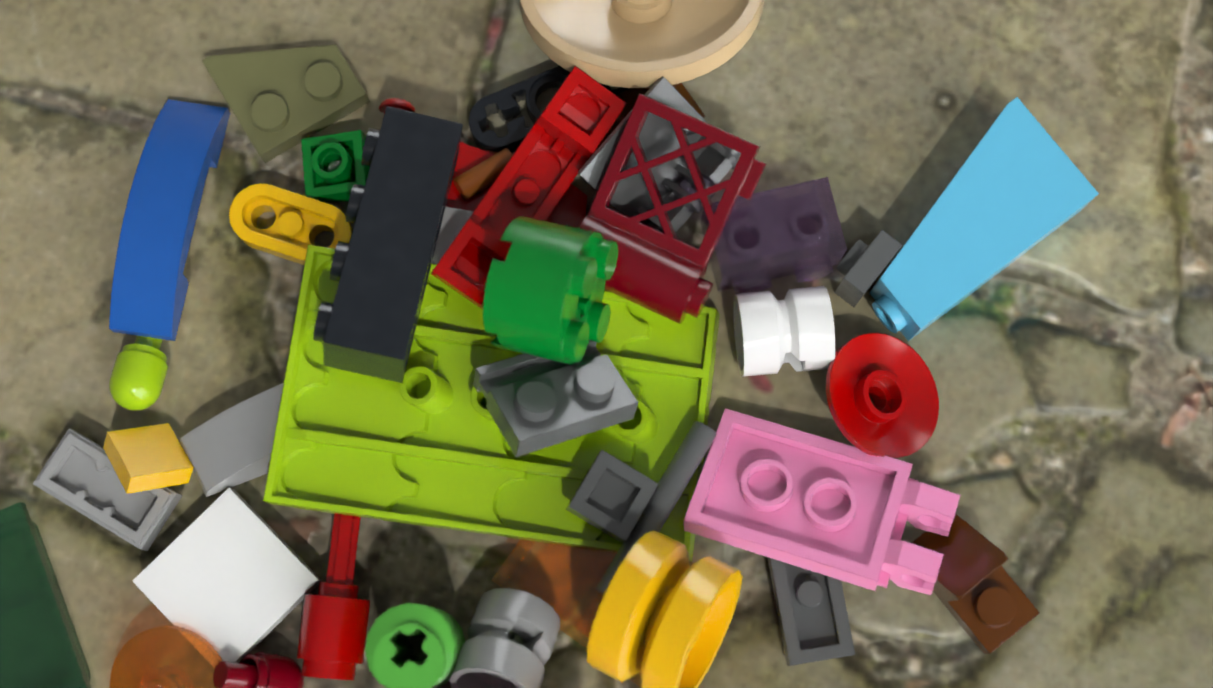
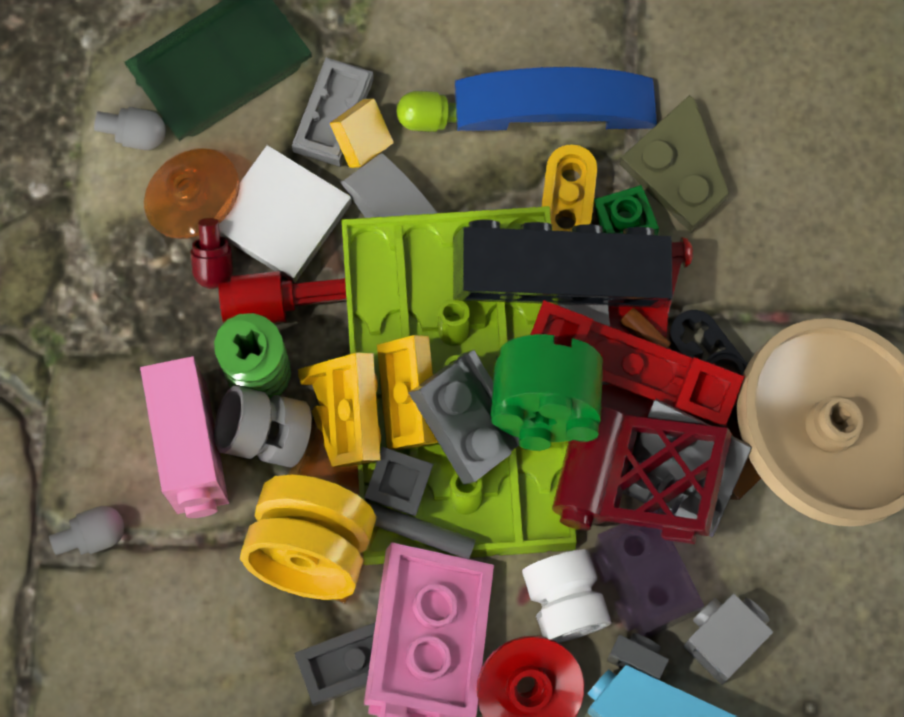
camera: 80 degrees right, 5 degrees down
(480, 461) = (402, 368): none -> yellow plate
(508, 542) = (347, 408): none -> yellow wing
(860, 162) = (727, 635): none -> light grey brick

